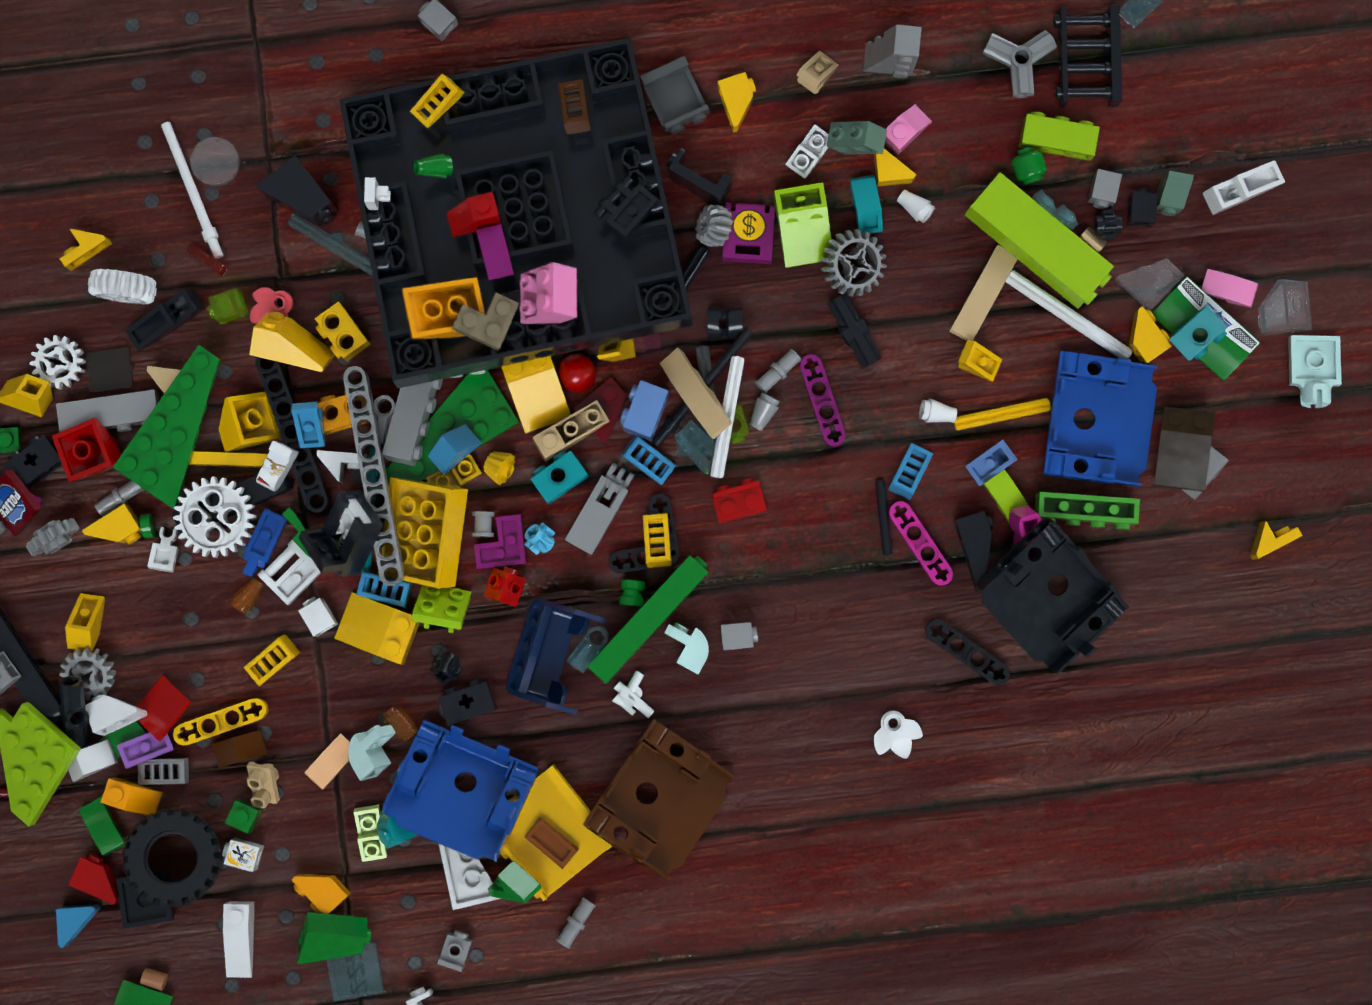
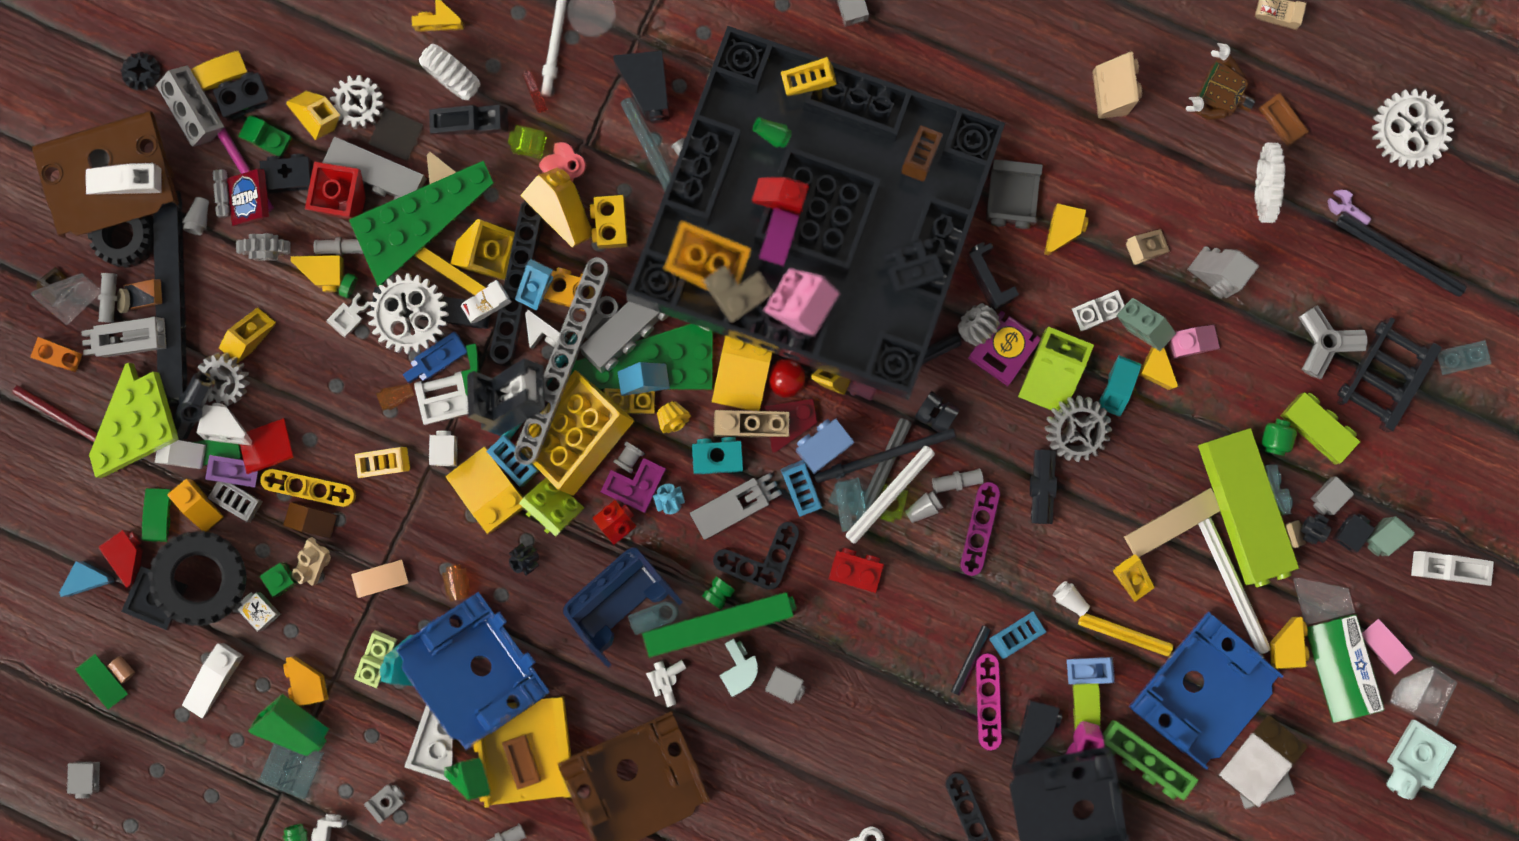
camera: 30 degrees right, 0 degrees up
(366, 751) = (413, 590): light aqua brick -> none
(375, 193) = (708, 125): white tile -> none
(456, 712) = (509, 601): black brick -> none
(659, 561) = (757, 580): yellow slope -> none
(695, 393) = (875, 457): tan slope -> none
(916, 206) = (1162, 414): white cone -> none
(1206, 319) = (1349, 661): teal brick -> none

